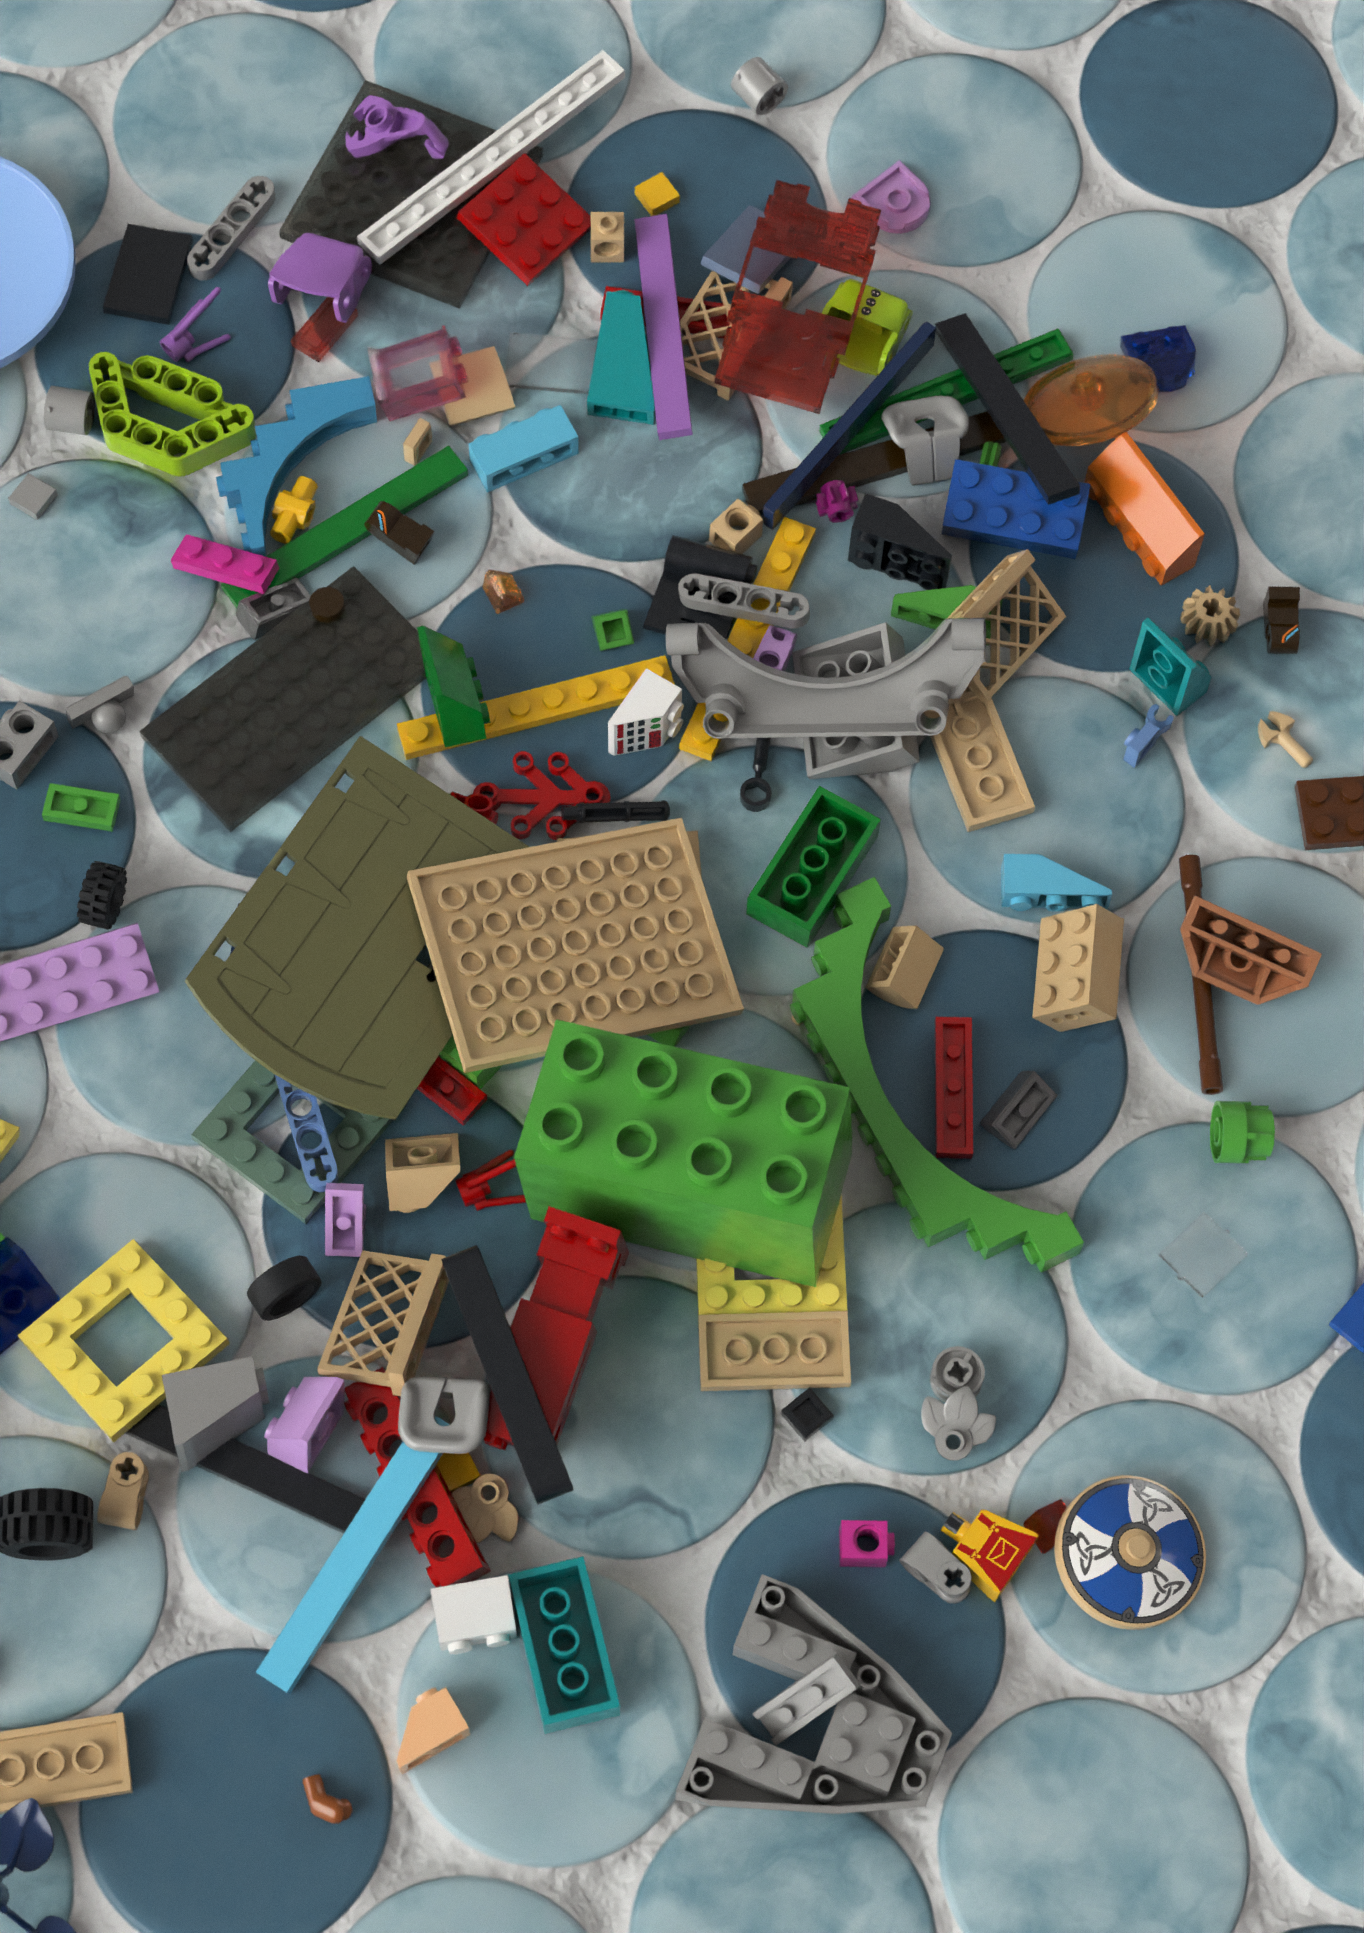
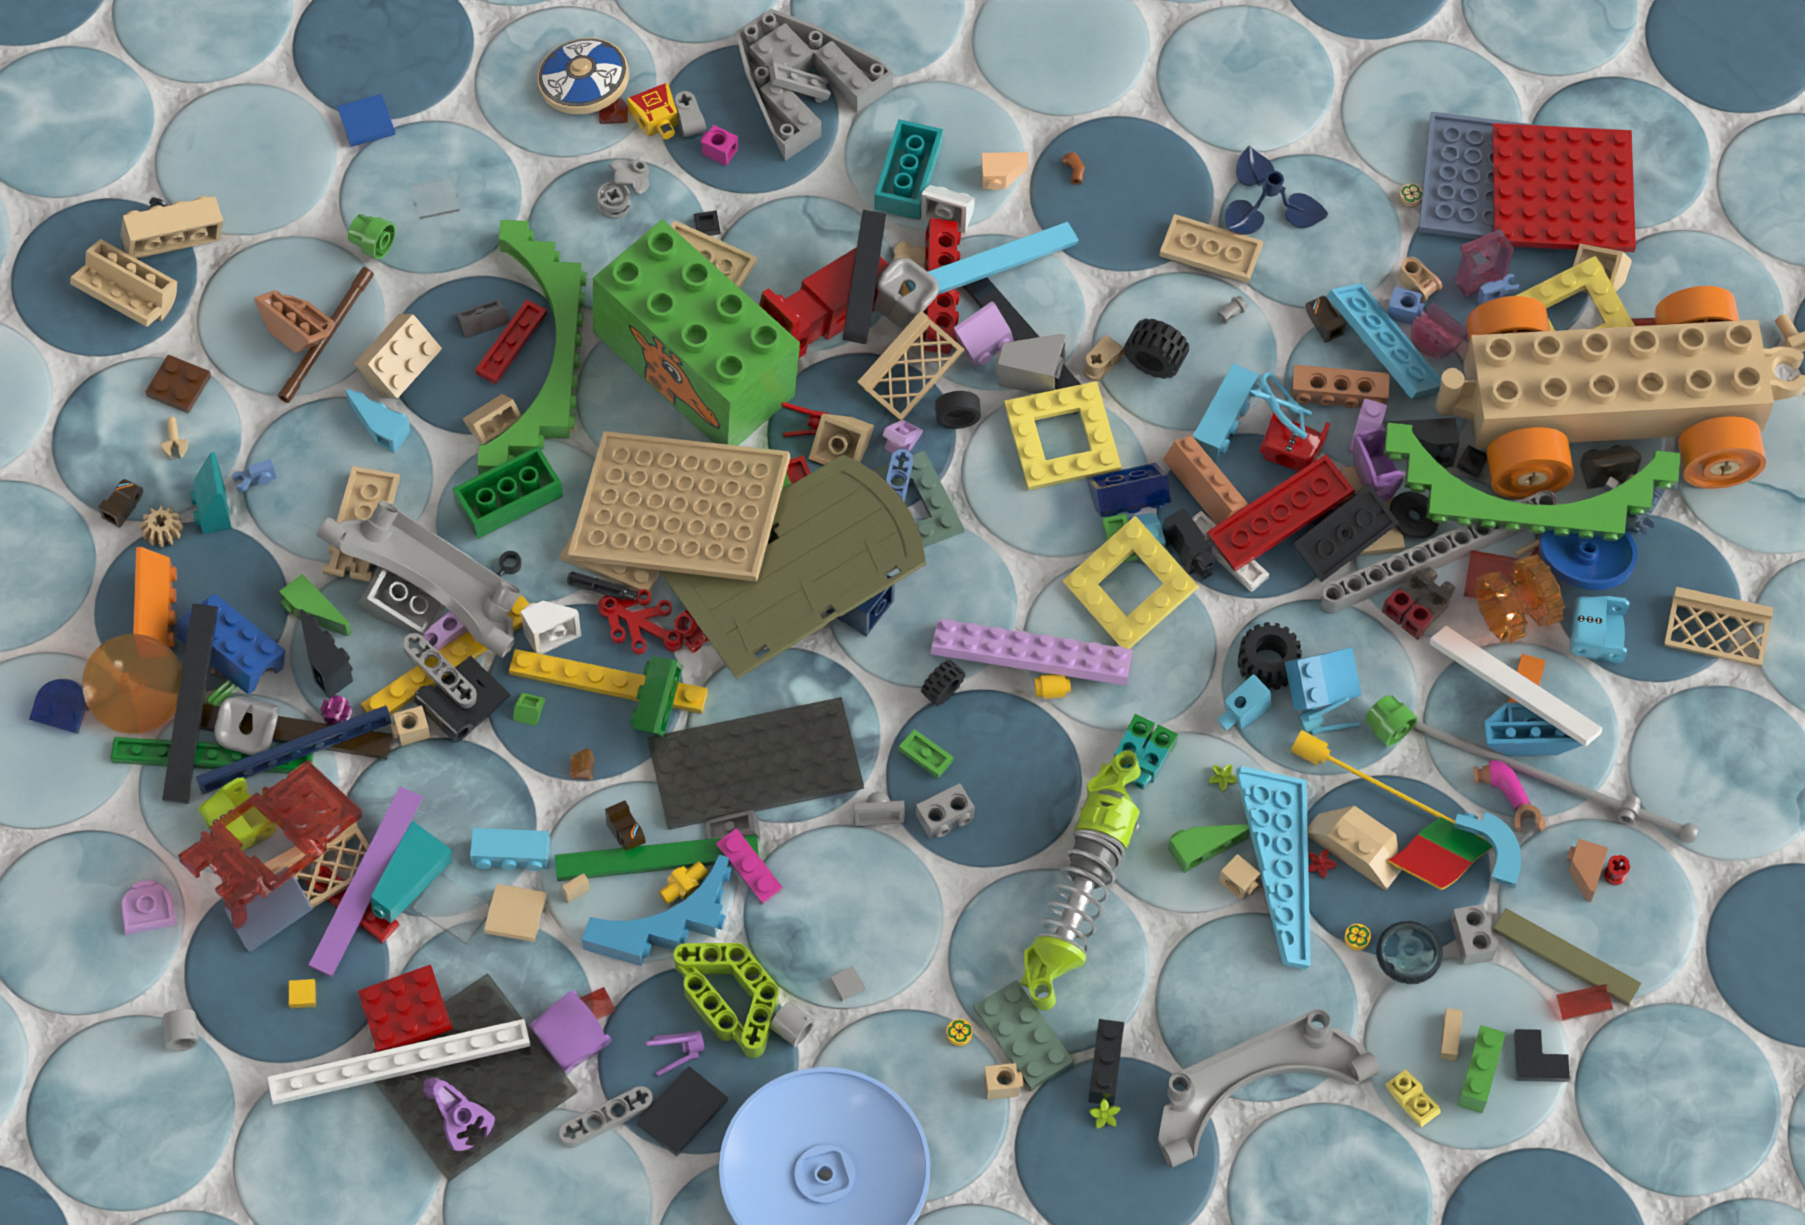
camera: 150 degrees left, 5 degrees down
(327, 604) = (700, 800): dark brown tile -> none
(418, 374) = (547, 928): clear pink window -> none
(607, 236) = (359, 969): tan brick -> none
(987, 599) = (294, 583): tan fence -> none

